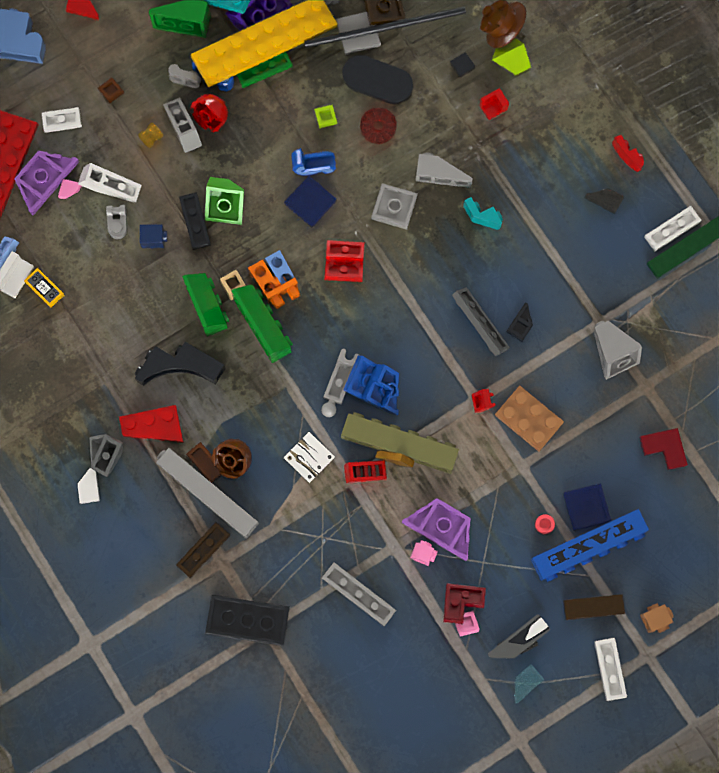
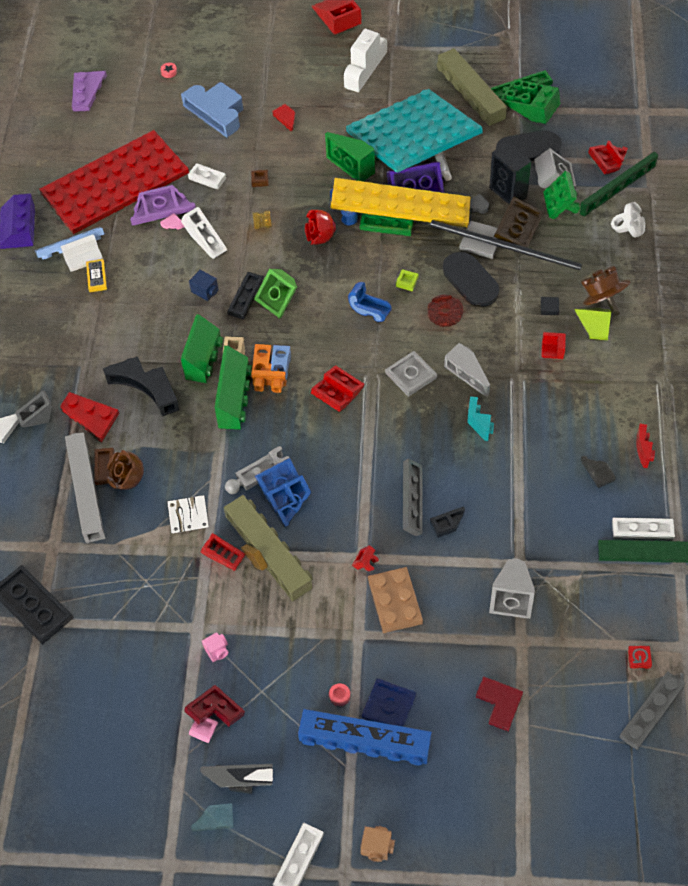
camera: 40 degrees right, 20 degrees down
(117, 227) = (185, 267): light grey plate -> none
(182, 125) = (290, 227): light grey slope -> none
(184, 77) = (319, 196): light grey plate -> none
(203, 550) = (45, 528): dark brown tile -> none
(310, 201) = (346, 332): clear blue tile -> none
(359, 594) = (135, 643): light grey plate -> none
(442, 526) = (249, 636): medium lavender wing -> none
(594, 607) = (327, 795): dark brown tile -> none

